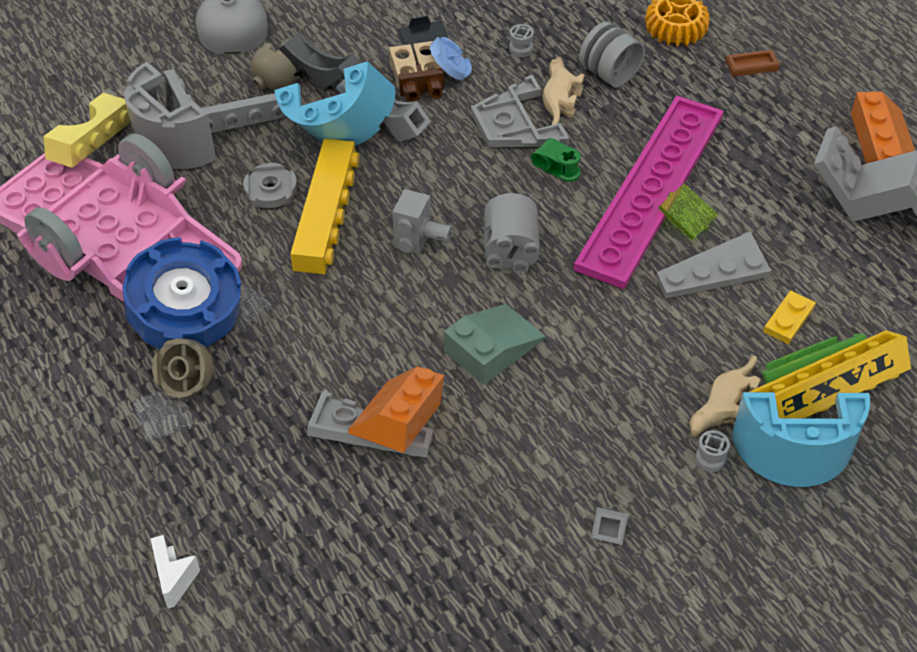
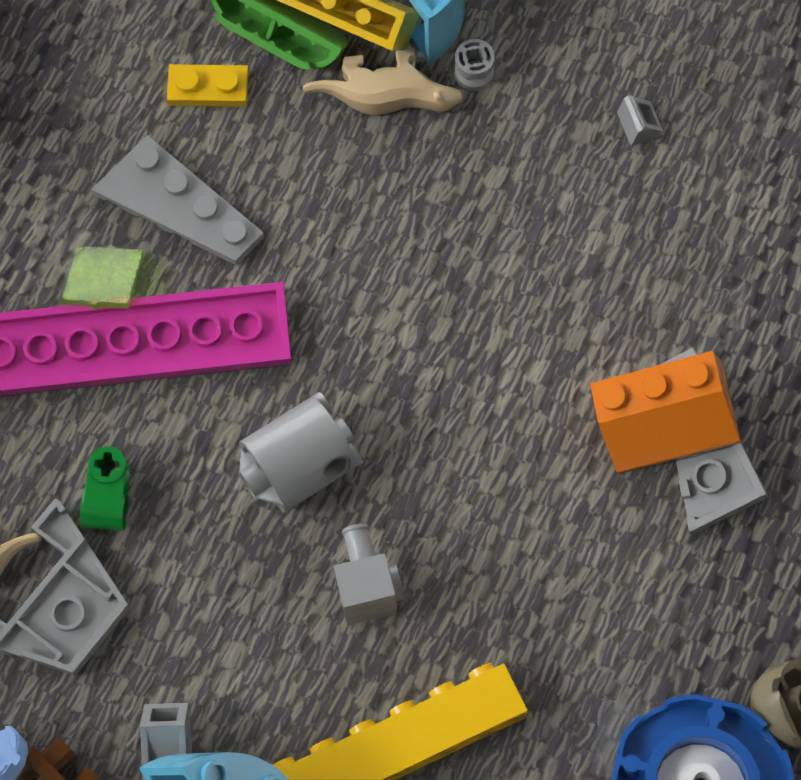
camera: 120 degrees left, 20 degrees up
(490, 341) = (475, 383): sand green slope -> none

